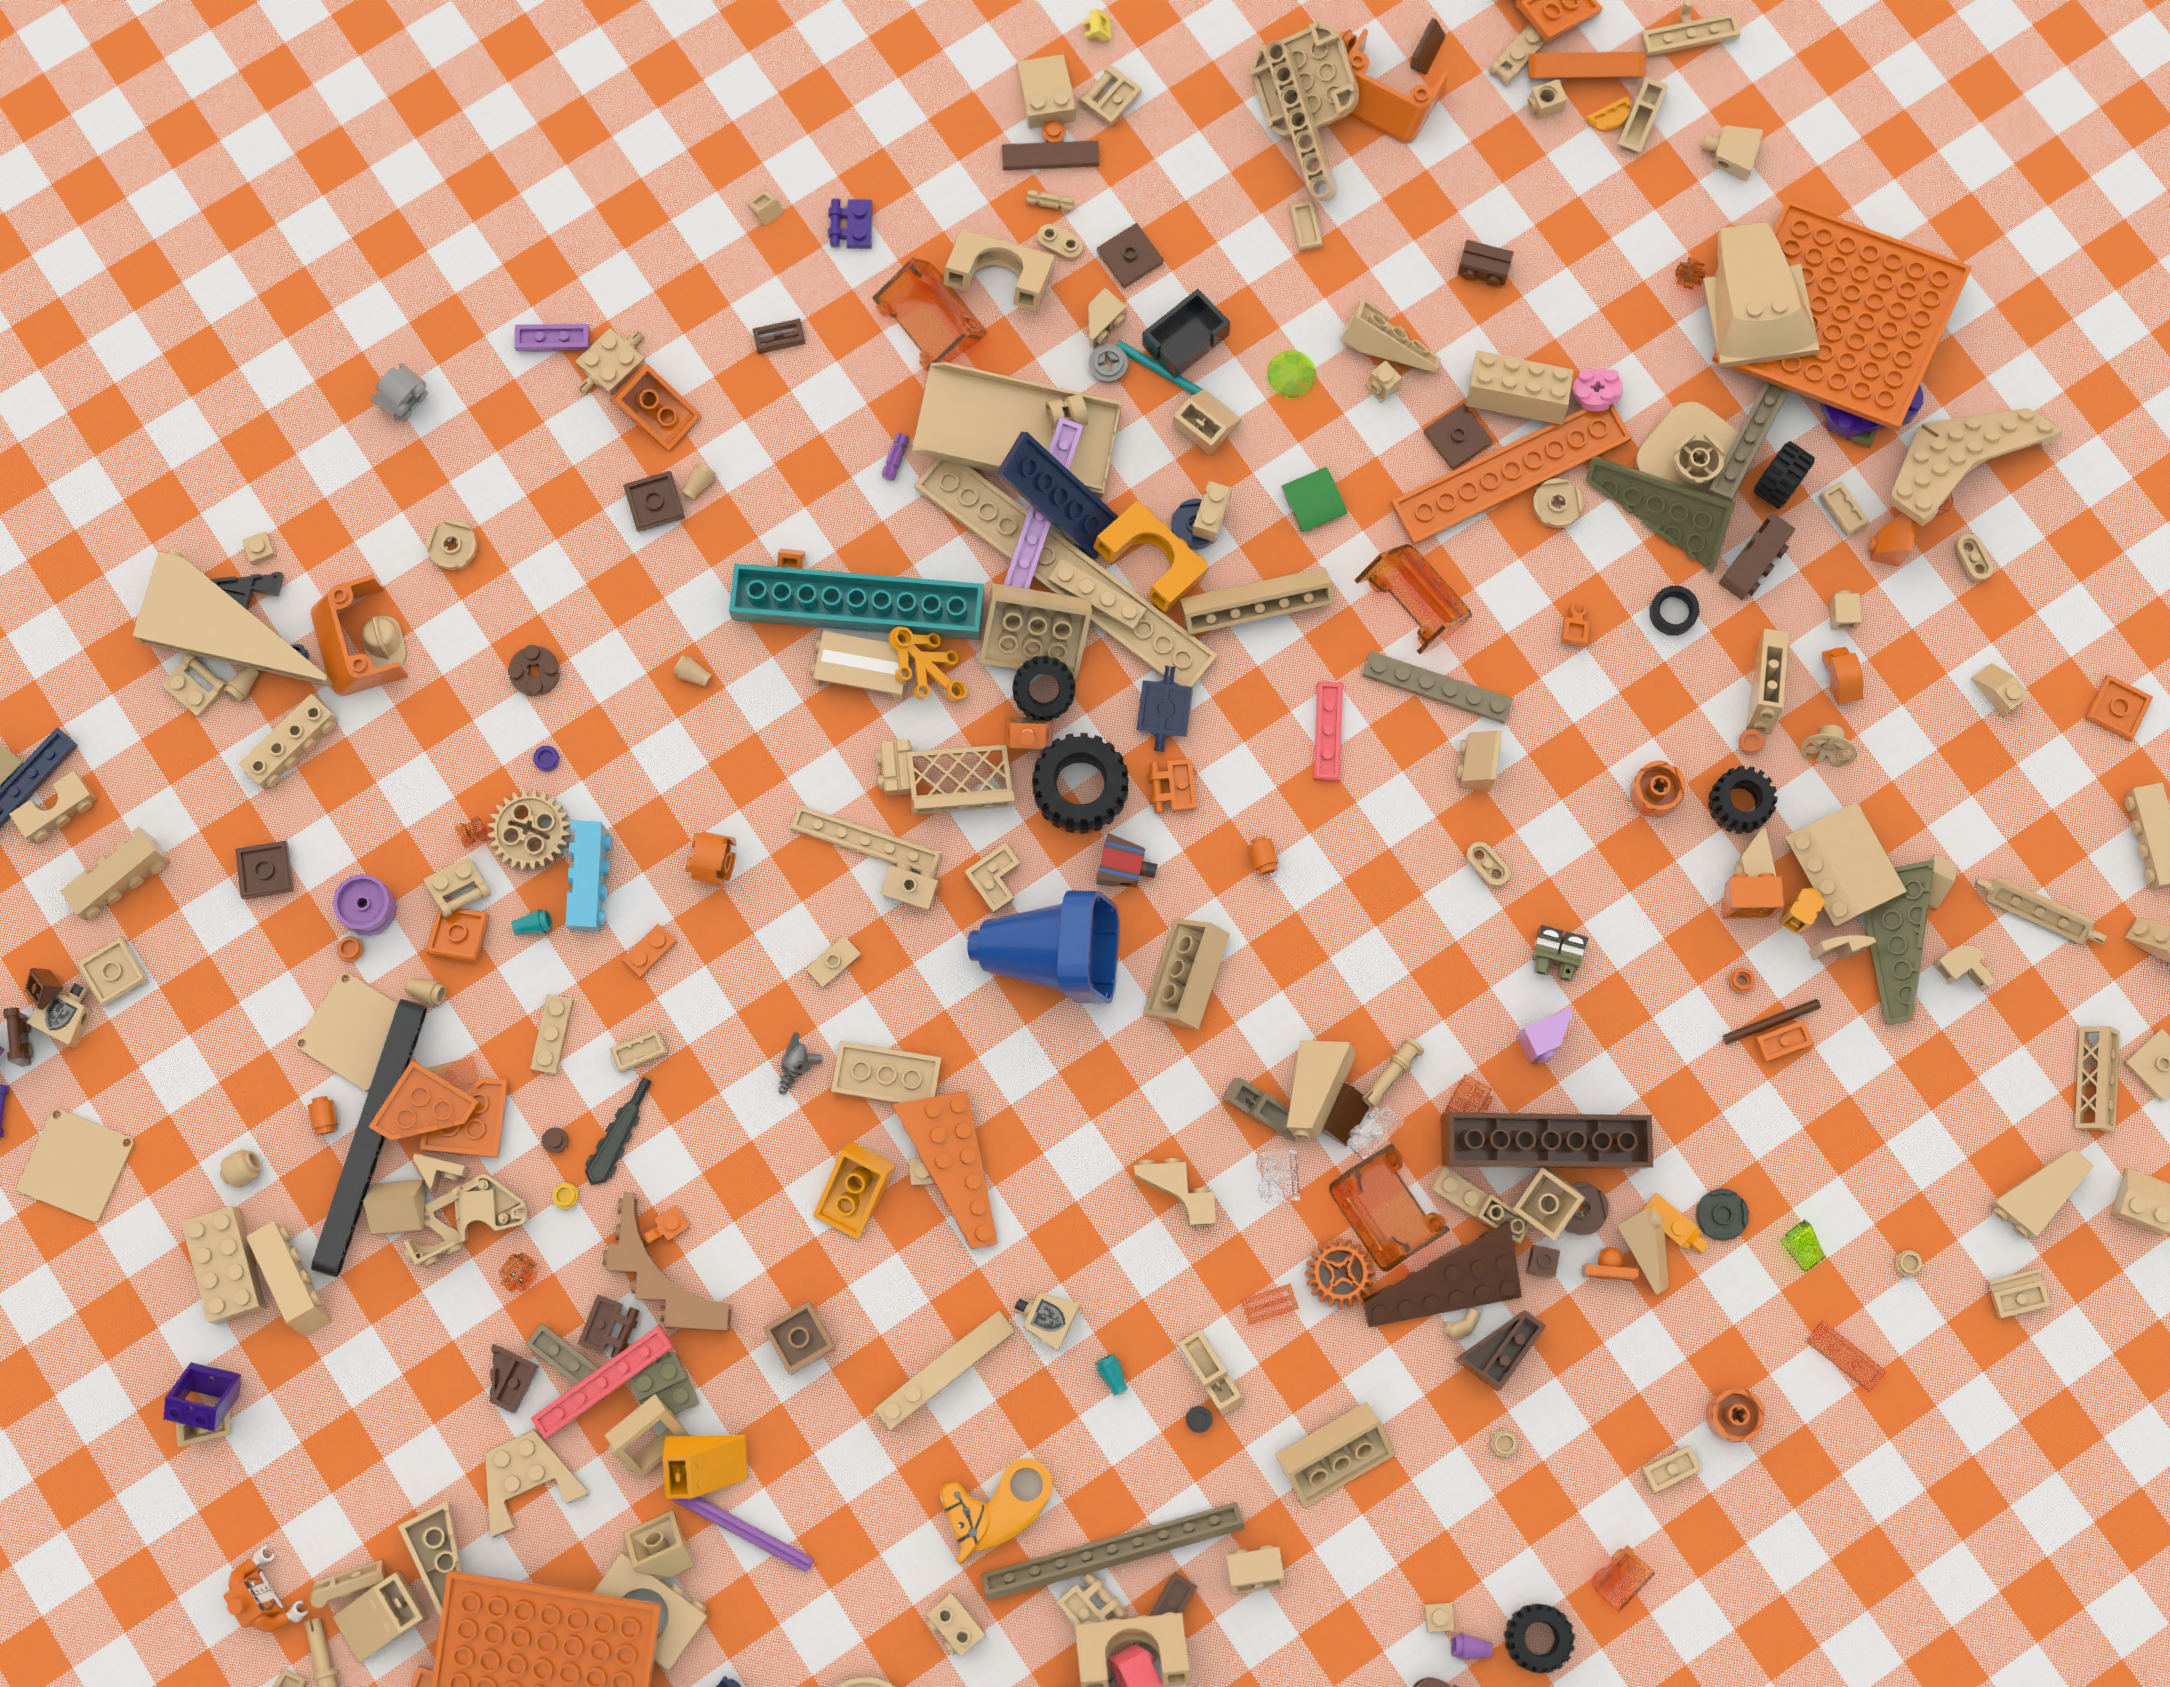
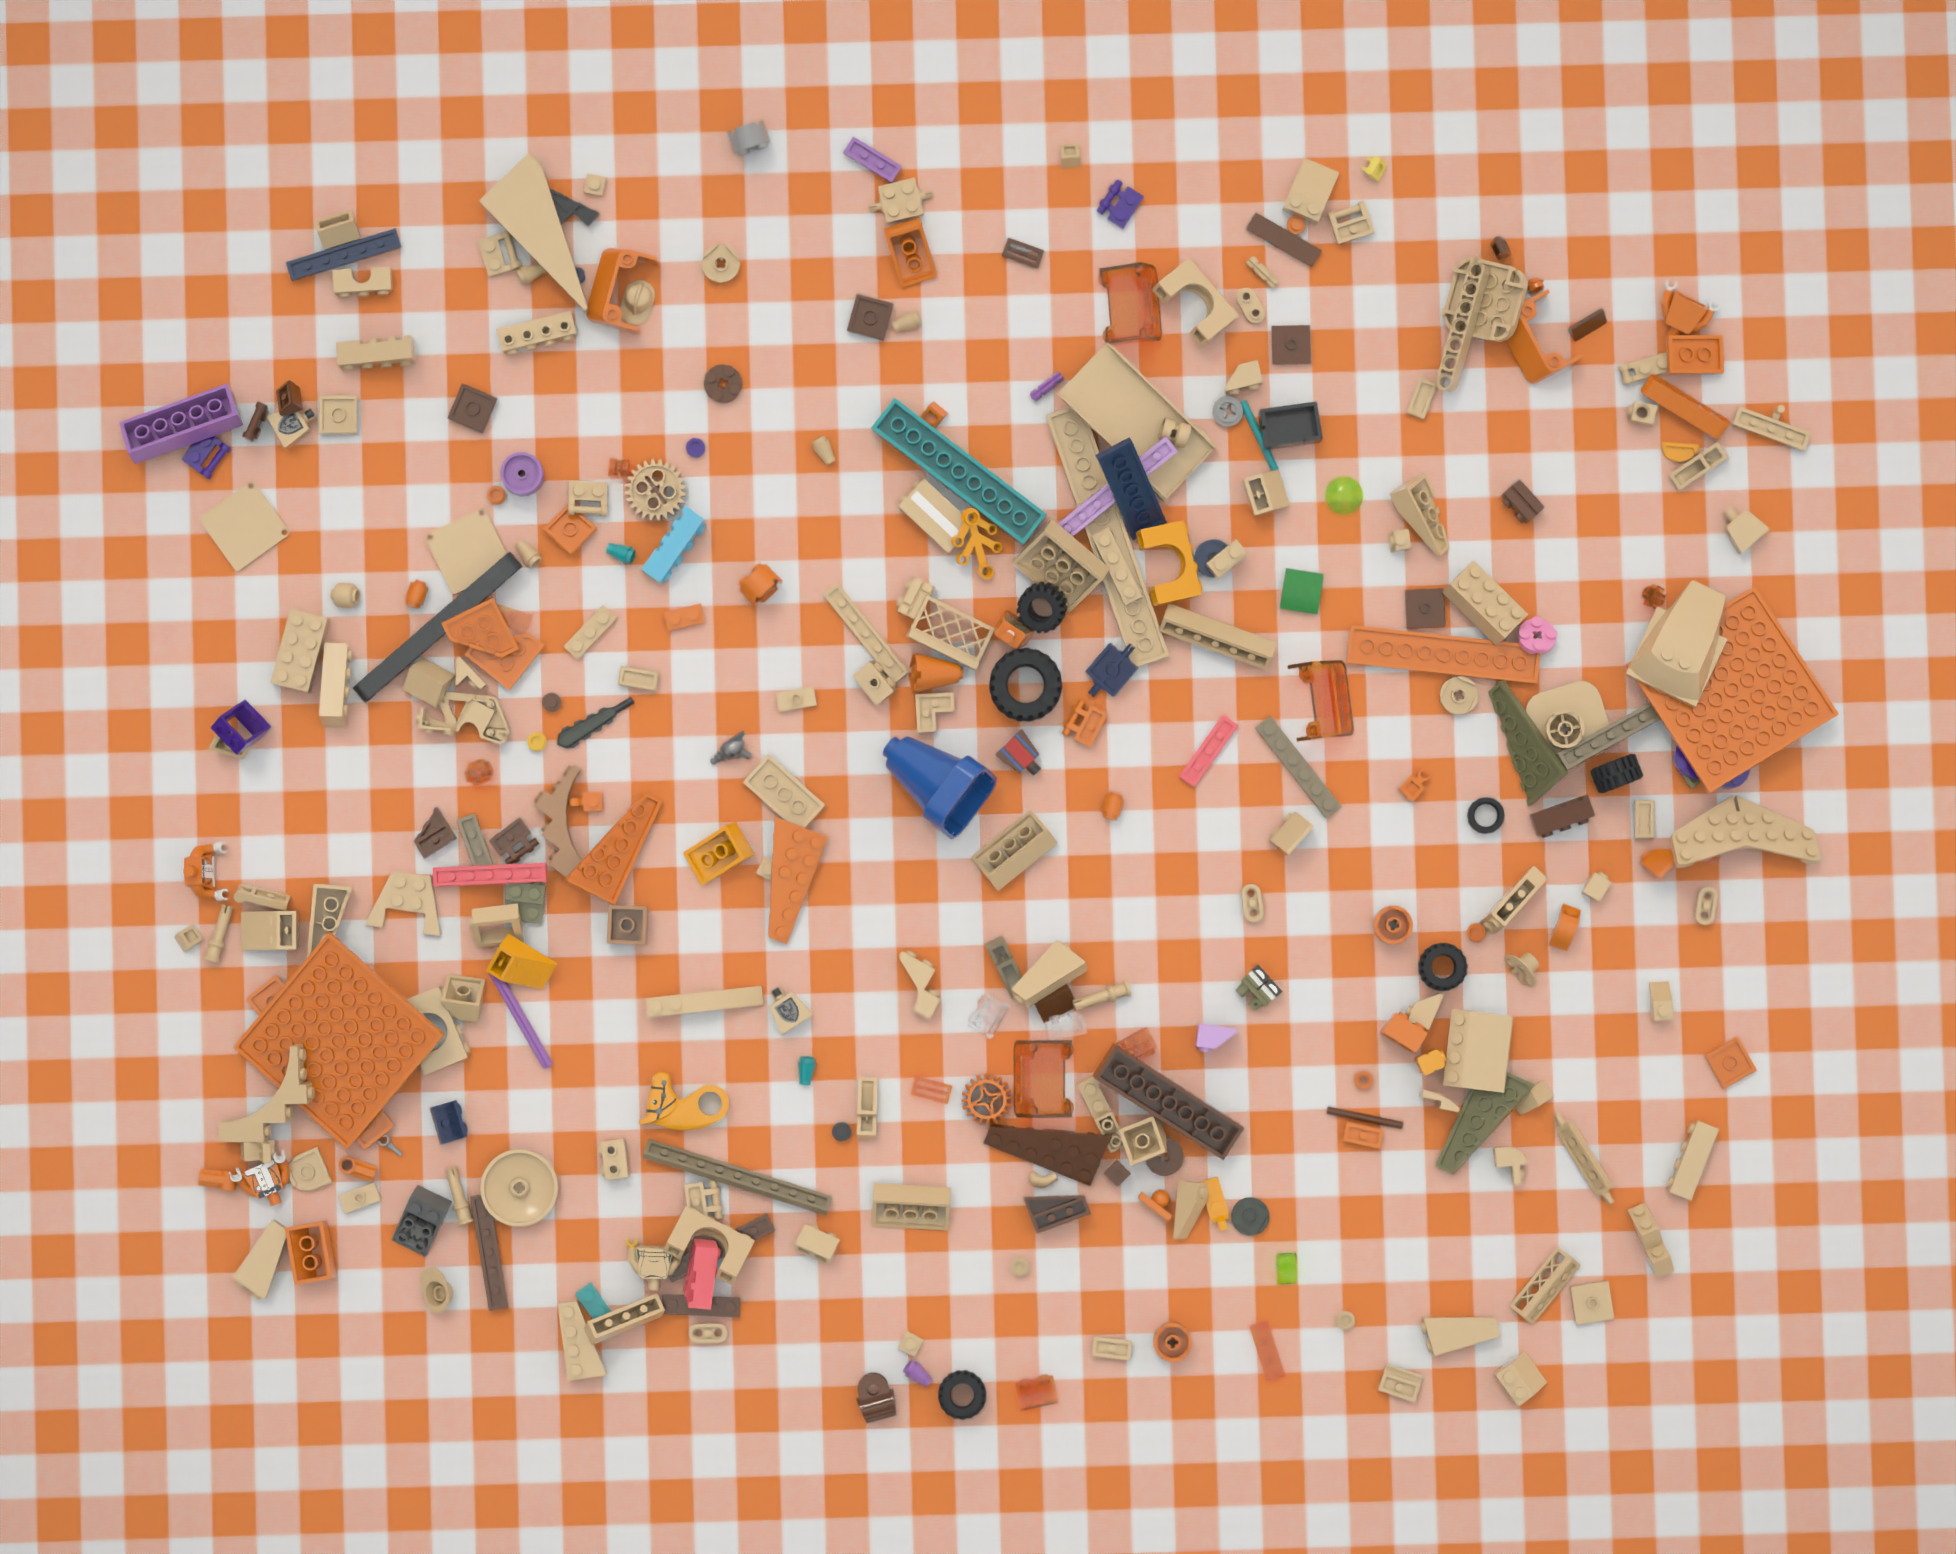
camera: 25 degrees right, 10 degrees up
(734, 1274) = (612, 858): none -> orange wing
(967, 835) = (932, 672): none -> orange cone
(1283, 22) = (1500, 247): none -> reddish brown slope

